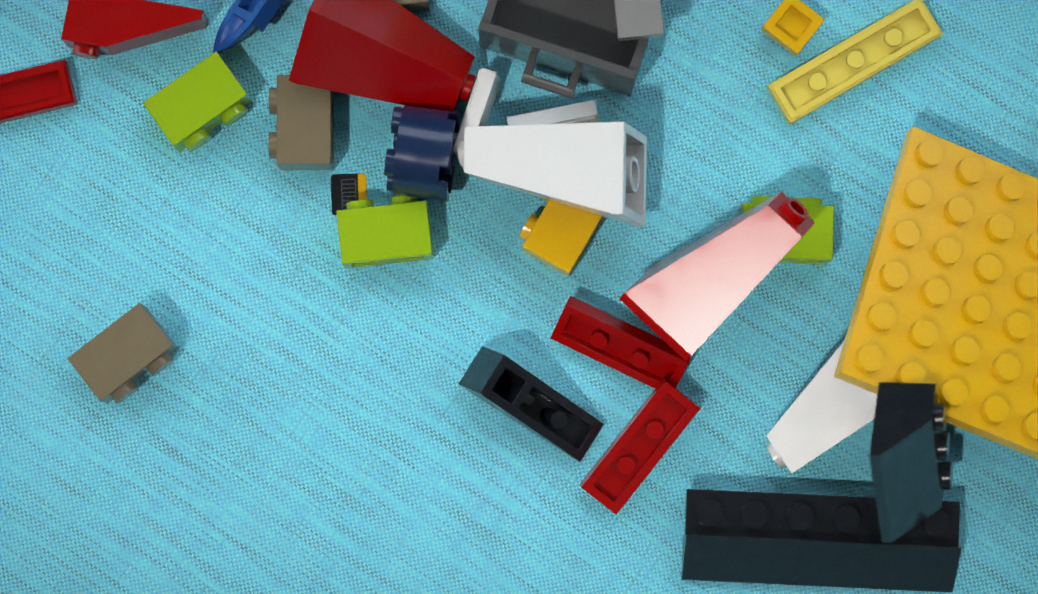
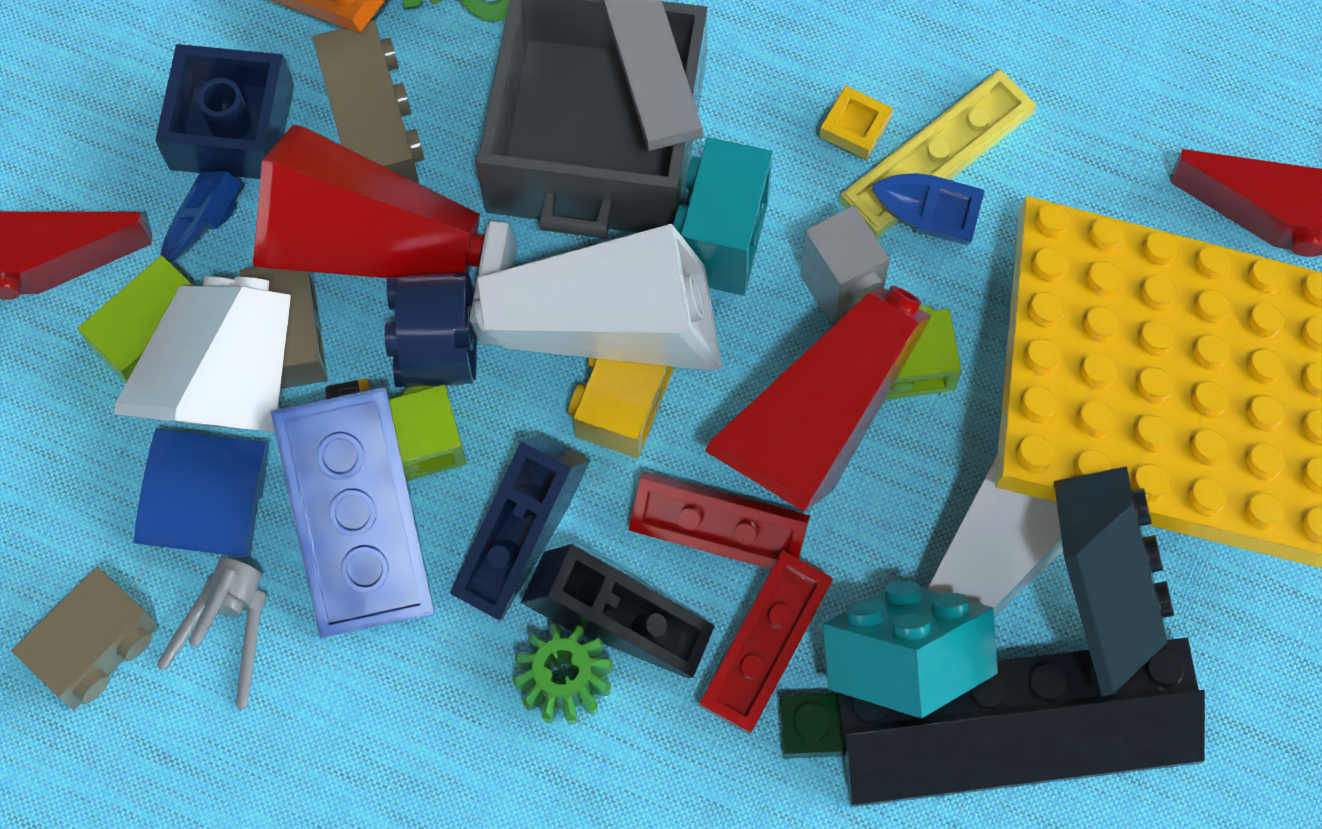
camera: 10 degrees left, 15 degrees down
(224, 249) = (201, 492): none -> blue slope
(235, 334) = (226, 592): none -> light grey plant
(246, 155) = (213, 357): none -> white slope
(340, 291) = (352, 512): none -> tile
(467, 319) = (519, 523): none -> dark blue slope
(496, 440) = (539, 678): none -> bright green gear
(662, 514) = (811, 726): none -> dark green plate
(672, 92) = (726, 210): none -> teal brick
(746, 480) = (910, 648): none -> teal brick
(757, 158) = (842, 262): none -> light grey brick
(839, 110) = (932, 204): none -> blue plate

